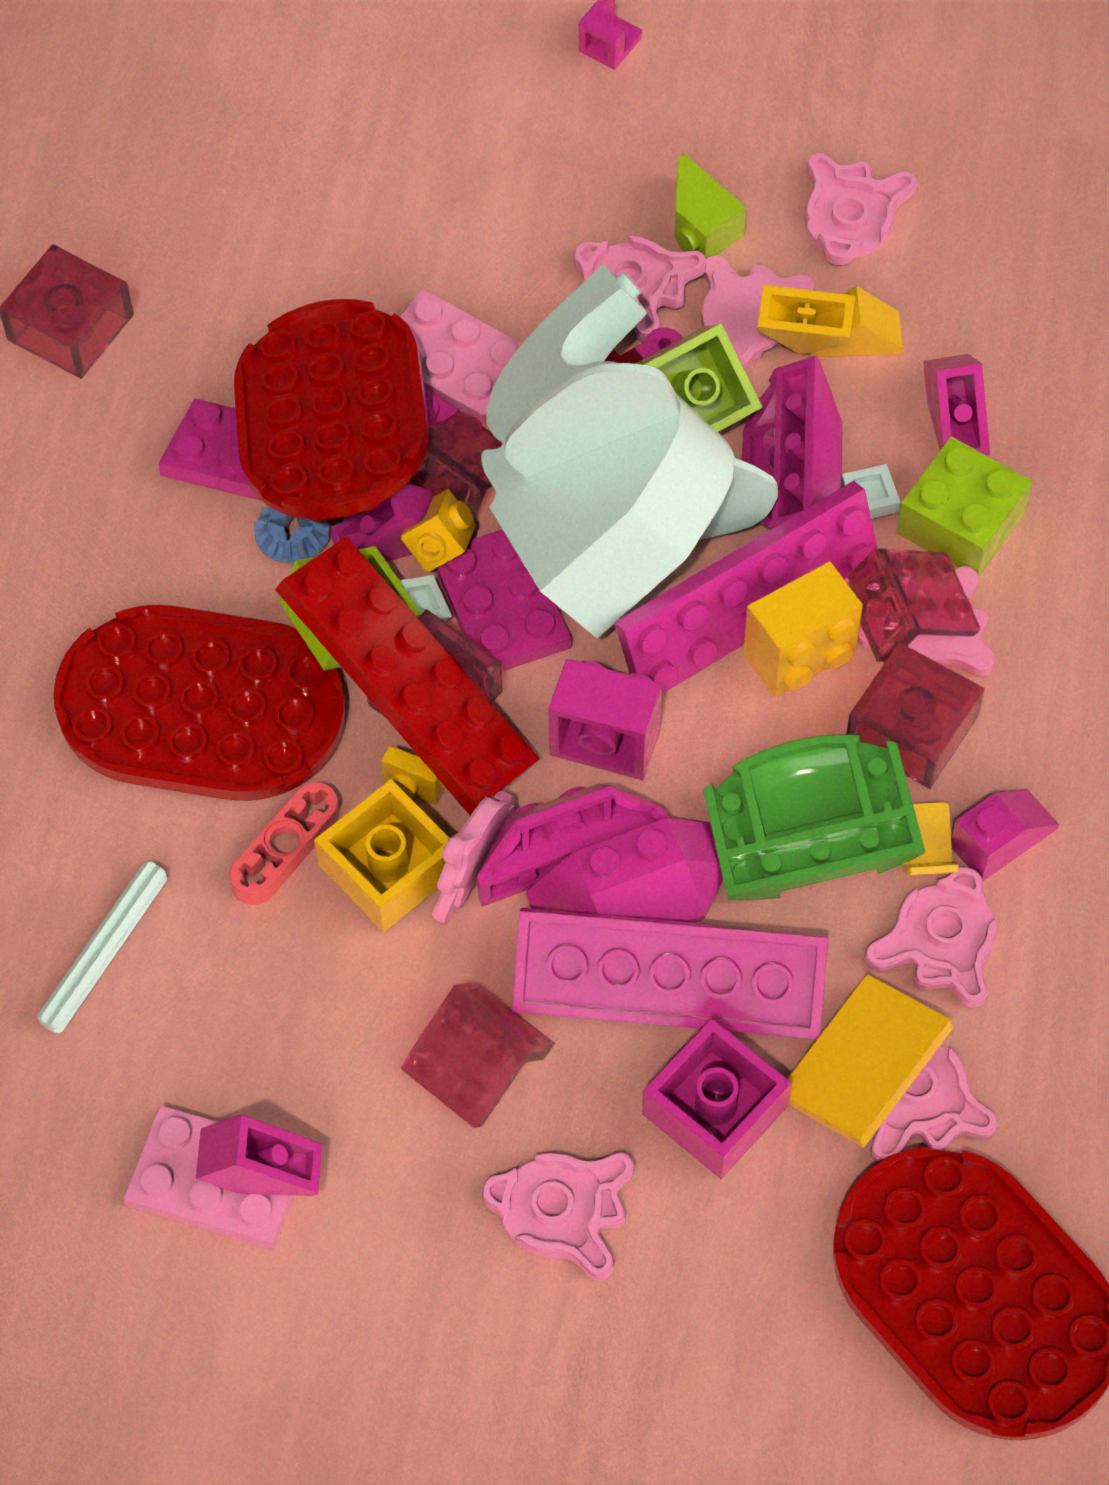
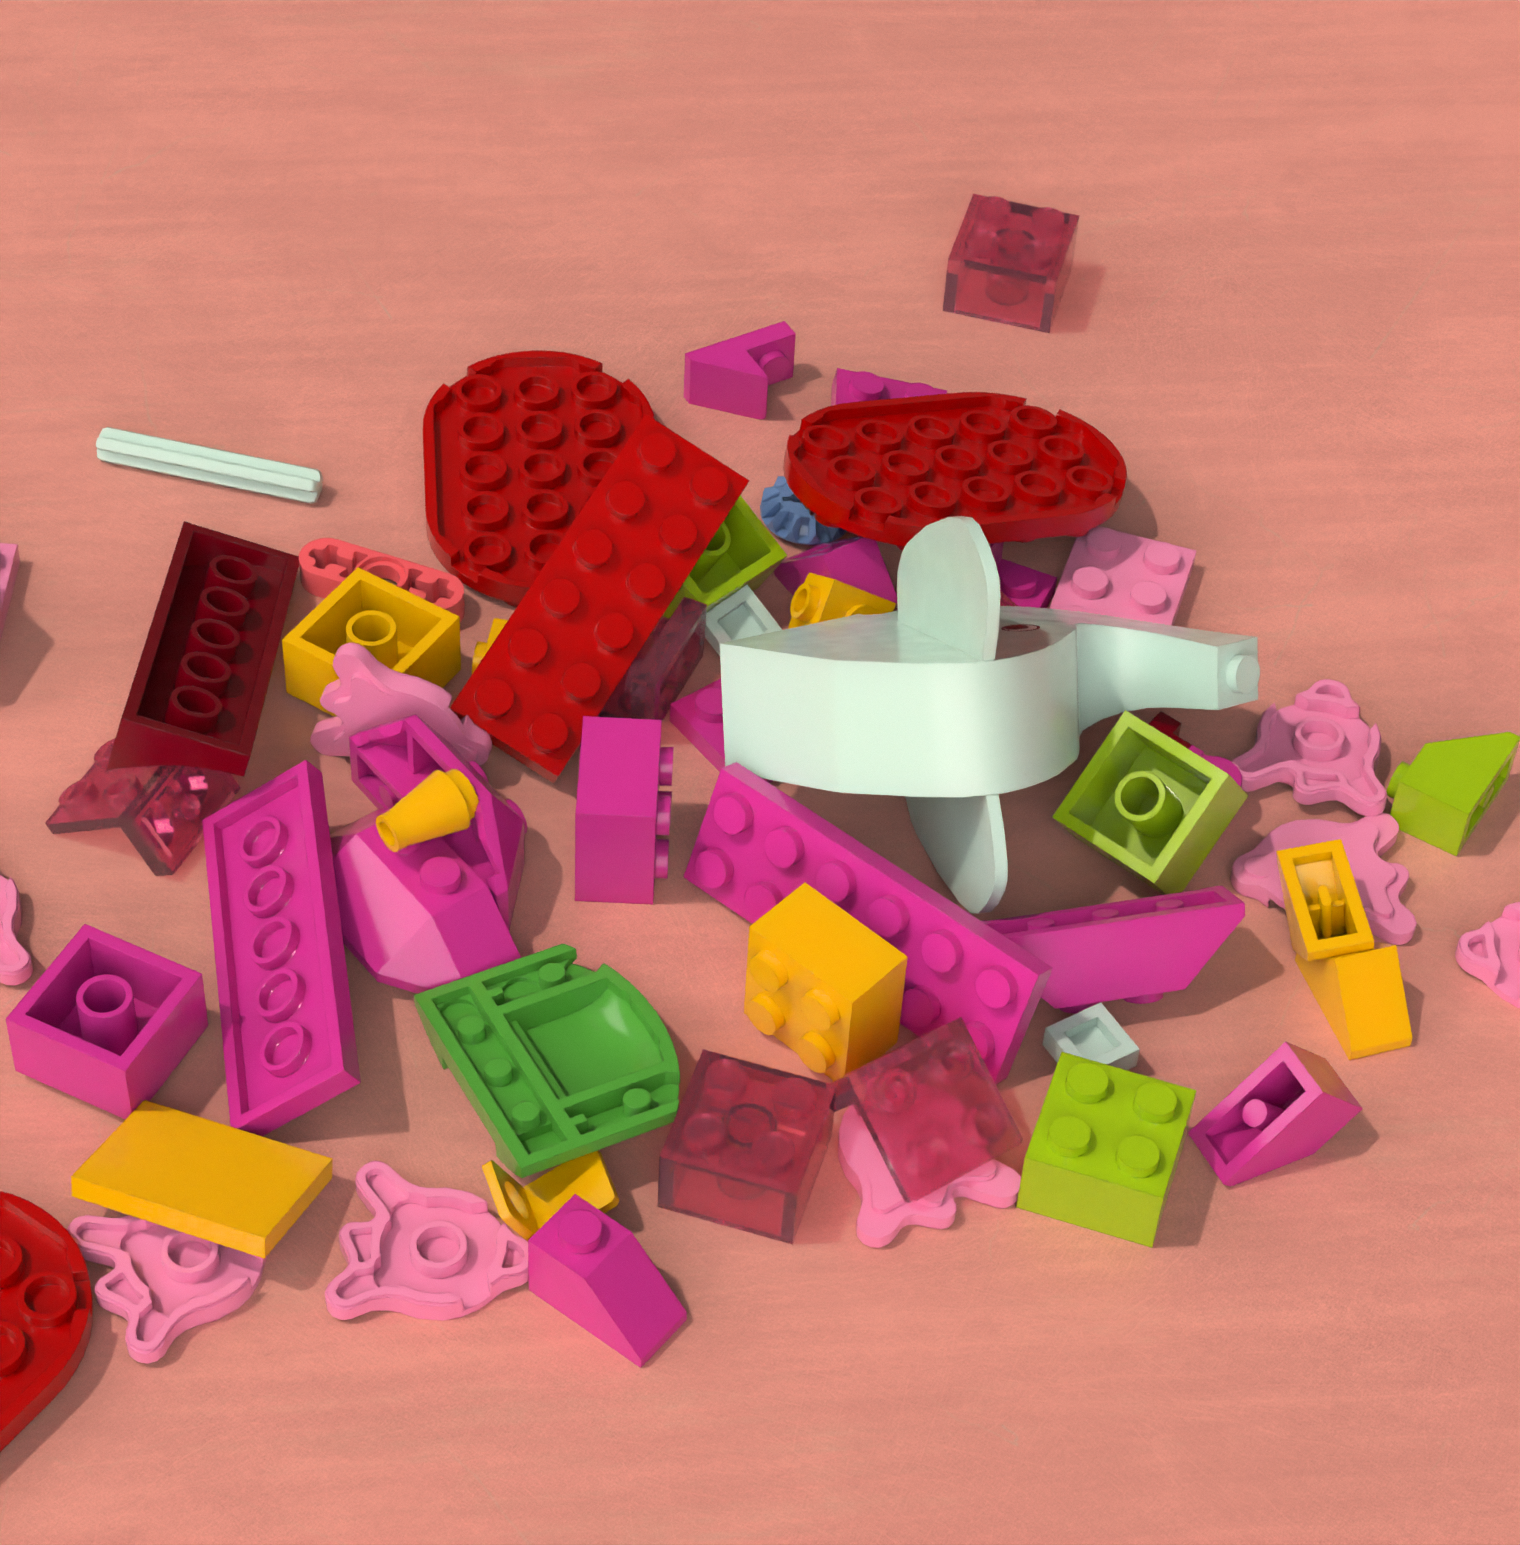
camera: 70 degrees right, 15 degrees down
(133, 536) = (737, 371): none -> dark pink slope
(360, 972) = (207, 655): none -> dark red arch
(607, 830) = (431, 810): none -> yellow cone

